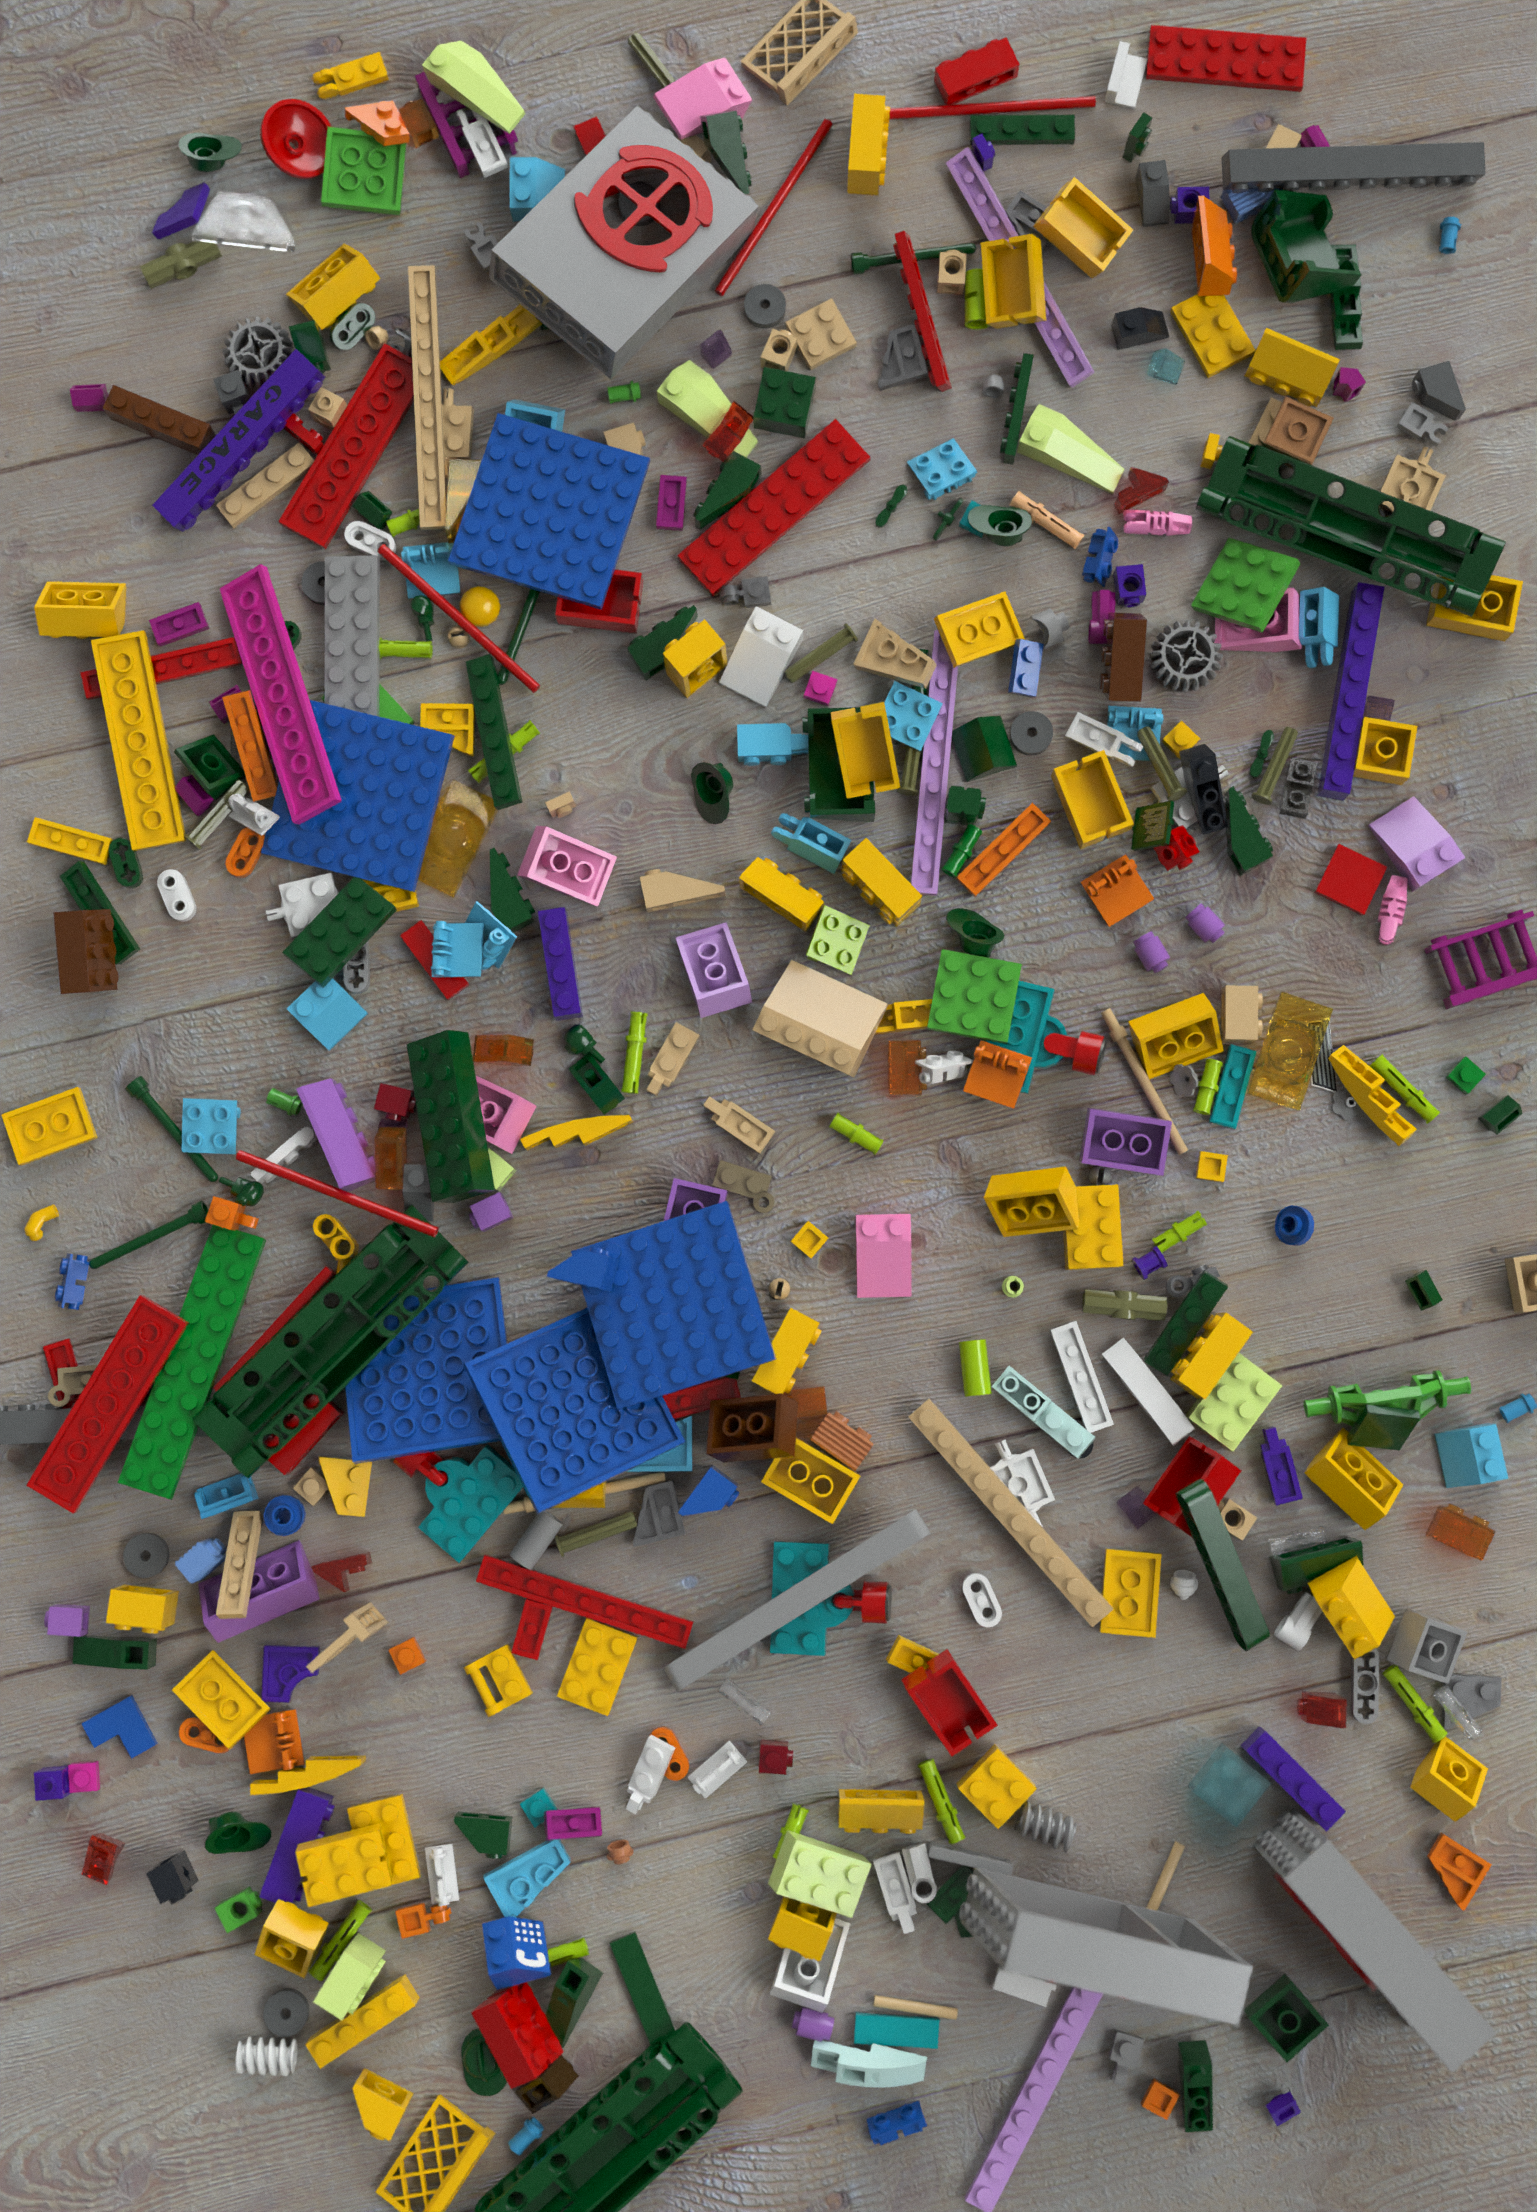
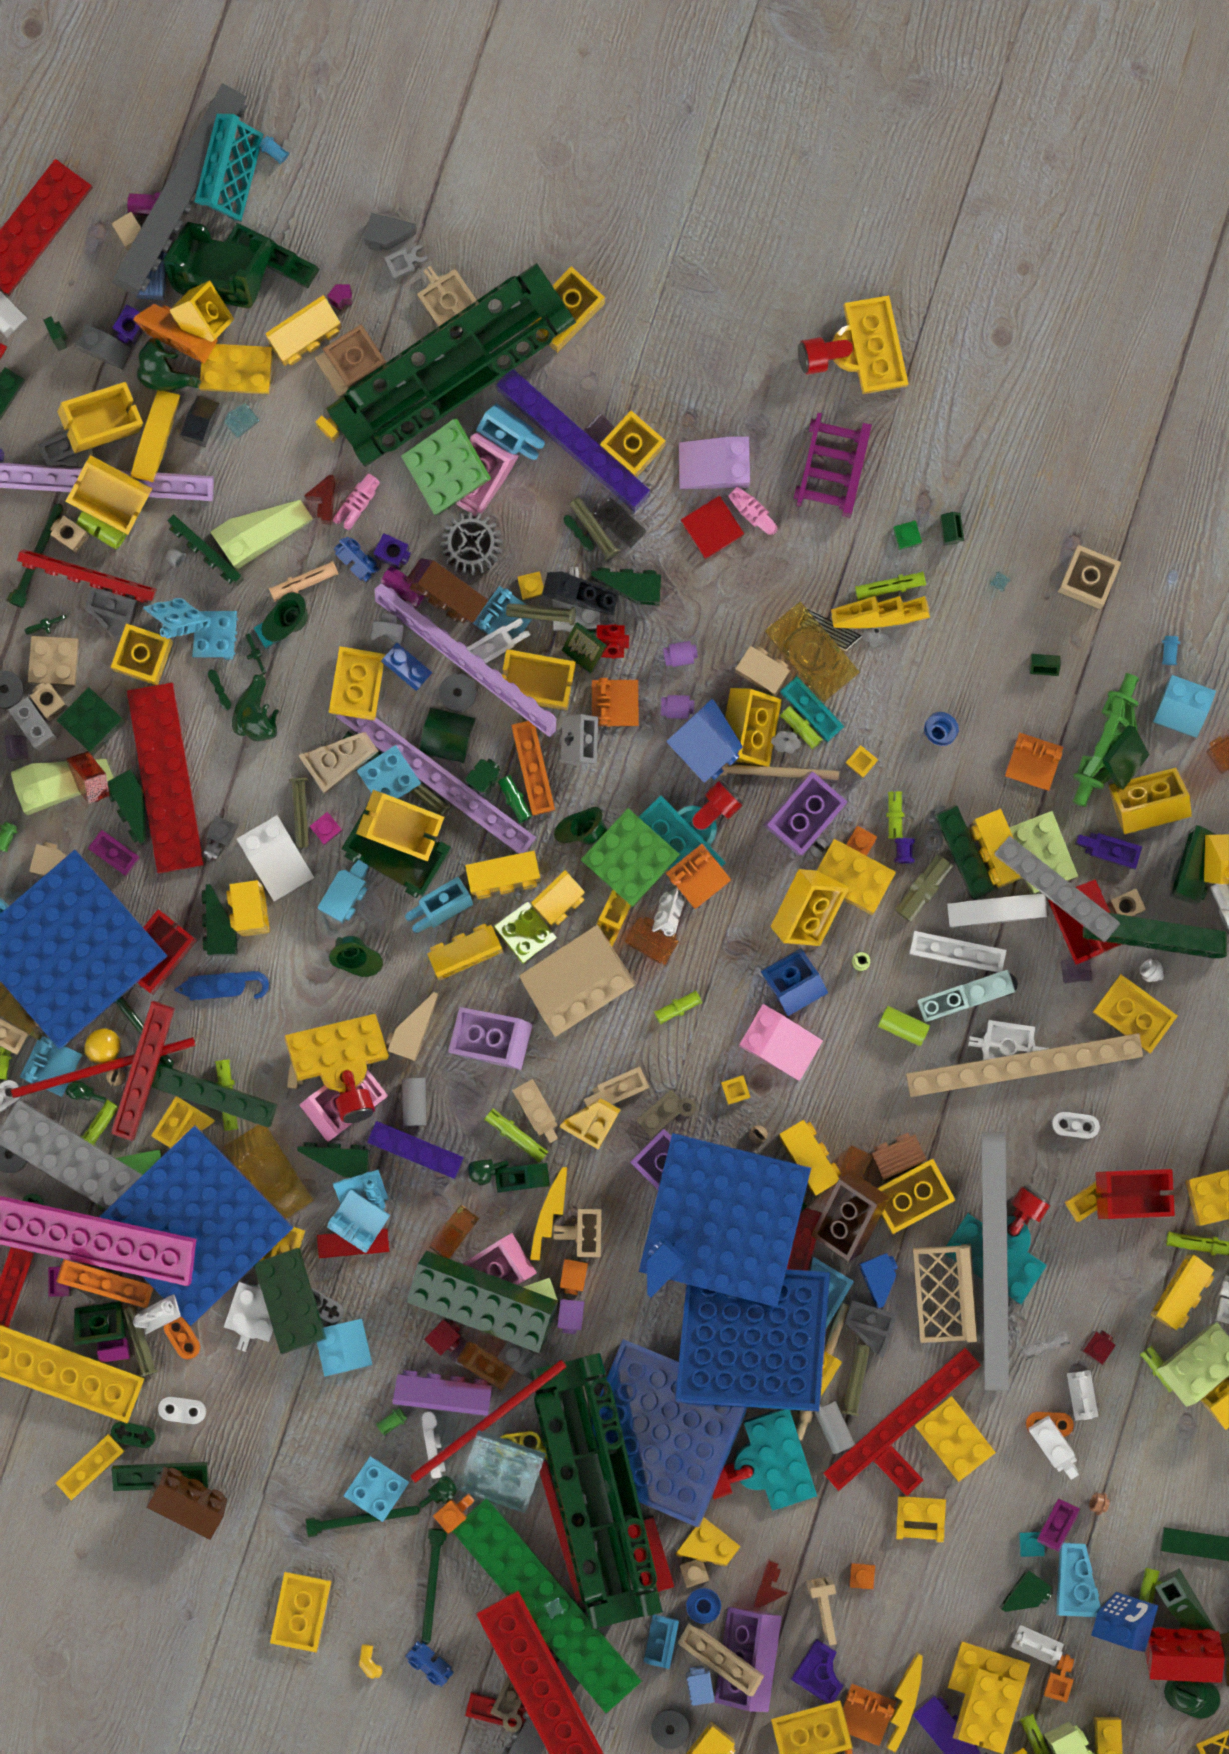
camera: 65 degrees left, 0 degrees up
(191, 1368) = (554, 1608): none -> clear light blue piece
(296, 1236) = (501, 1471): none -> clear light blue plate
(477, 655) = (142, 1070): none -> red tile
(530, 1191) = (573, 1276): none -> orange brick
(579, 1177) = (585, 1233): none -> tan brick
(603, 835) = (340, 1058): none -> yellow plate
(606, 934) = (414, 1101): none -> light grey pin
(607, 682) = (221, 985): none -> blue plate
(691, 1118) = (592, 1122): none -> yellow wing
(747, 350) = (33, 724): none -> light grey brick
(749, 1590) = (966, 1292): none -> tan fence
(850, 304) = (45, 624): none -> dark green piece
(878, 409) = (141, 654): none -> yellow brick
(883, 548) = (250, 718): none -> dark green piece
(890, 951) = (558, 899): none -> yellow slope
(934, 419) = (177, 617): none -> medium azure hinge
(951, 1233) = (794, 982): none -> blue slope
(1059, 876) = (579, 739): none -> light grey brick
(1067, 720) = (471, 664): none -> lavender plate
(1098, 292) = (155, 436): none -> yellow slope
(1133, 1214) = (861, 840): none -> orange plate
(1135, 999) = (706, 742): none -> slope
(1161, 256) = (157, 372): none -> dark green piece
(1208, 1438) = (1057, 889): none -> light grey plate
(1247, 258) = (202, 312): none -> yellow slope
(1319, 1338) = (1034, 761): none -> orange hinge
(1405, 182) = (218, 163): none -> teal fence
(1478, 1195) = (1000, 581): none -> clear light blue piece

